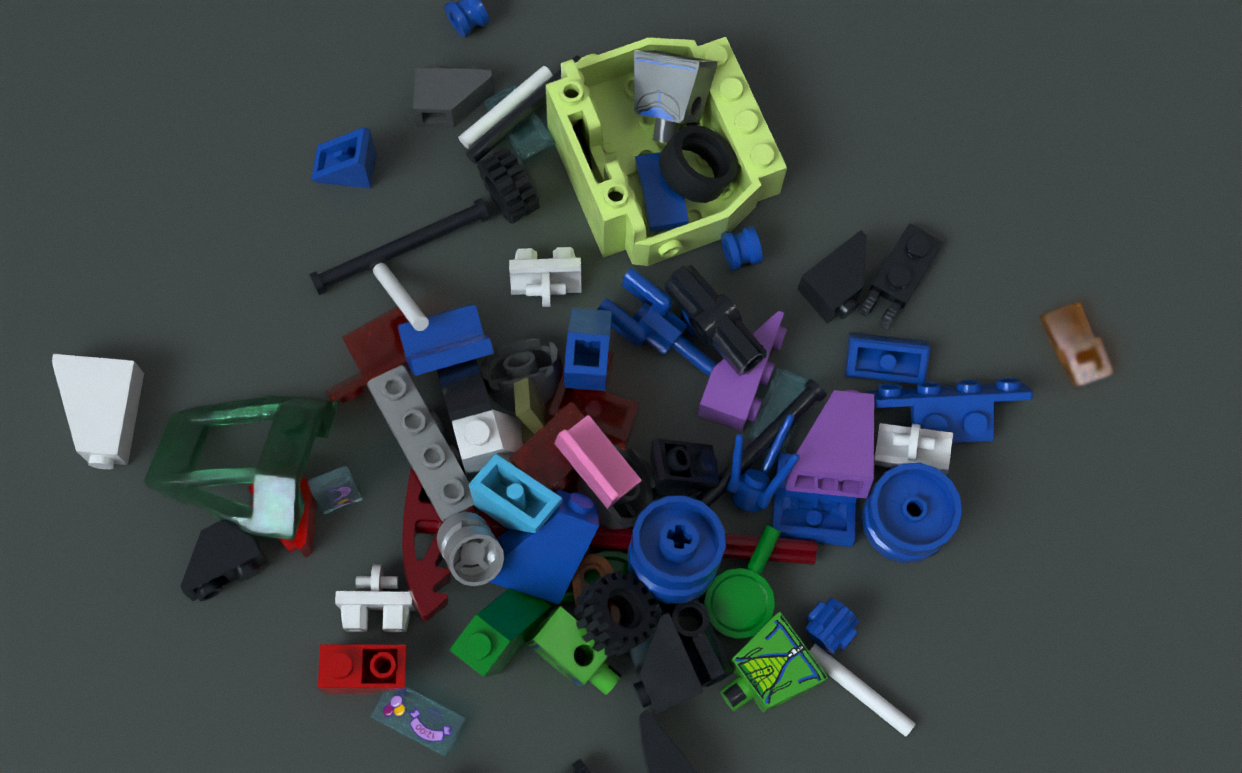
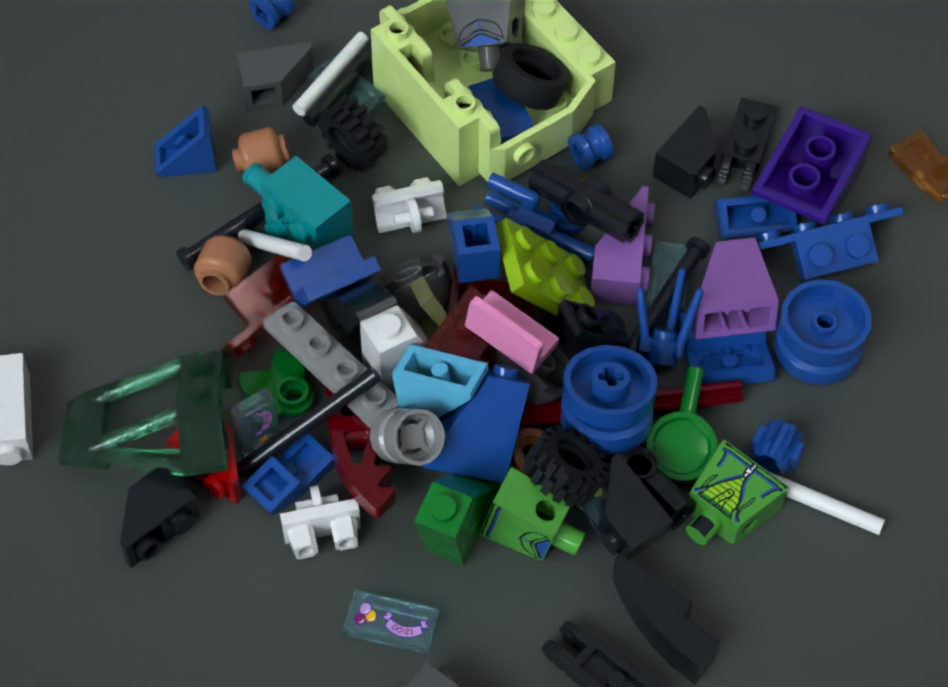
camera: 10 degrees left, 15 degrees down
(348, 301) = (222, 264): none -> nougat head
(360, 542) = (289, 477): none -> blue slope
(361, 668) = (324, 582): red slope -> none
(364, 446) = (282, 381): none -> green plate
(387, 500) = (309, 421): none -> black bar
(416, 184) = (262, 147): none -> nougat head
(434, 261) = (300, 204): none -> teal brick
(652, 392) = (540, 268): none -> lime plate
(913, 445) = (791, 273): white hips -> none
(954, 327) = (813, 165): none -> dark purple slope

